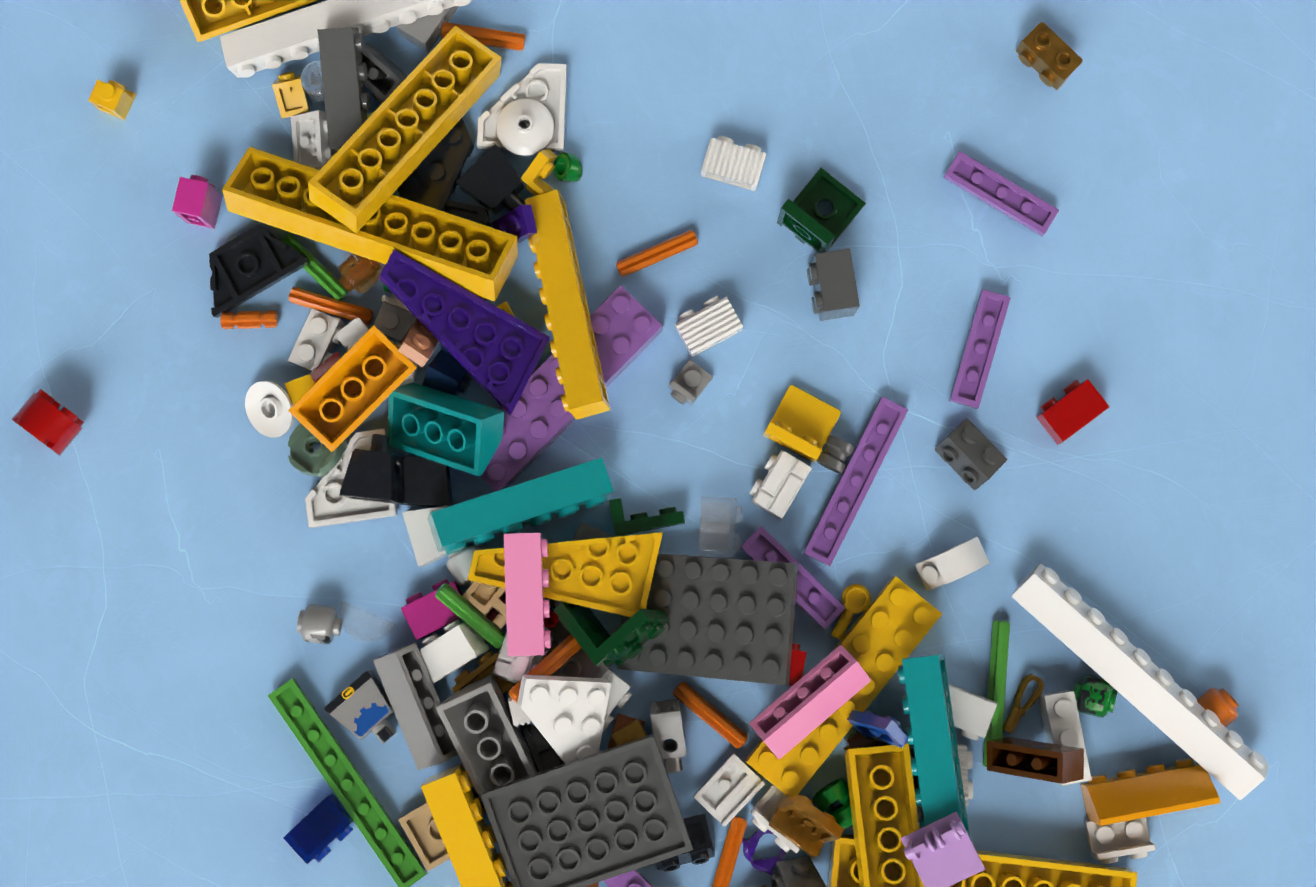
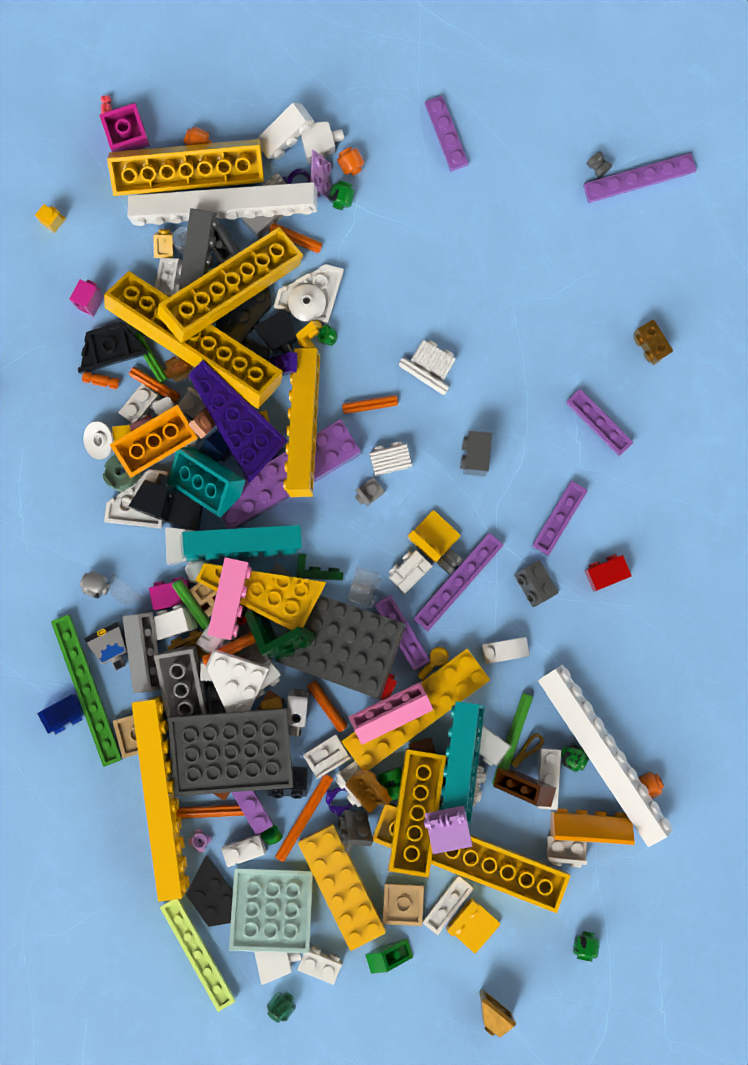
camera: 10 degrees right, 0 degrees up
(725, 191) = (423, 375): none -> white axle
(808, 224) = (472, 412): dark green bracket -> none
(878, 728) = (430, 741): blue plate -> none

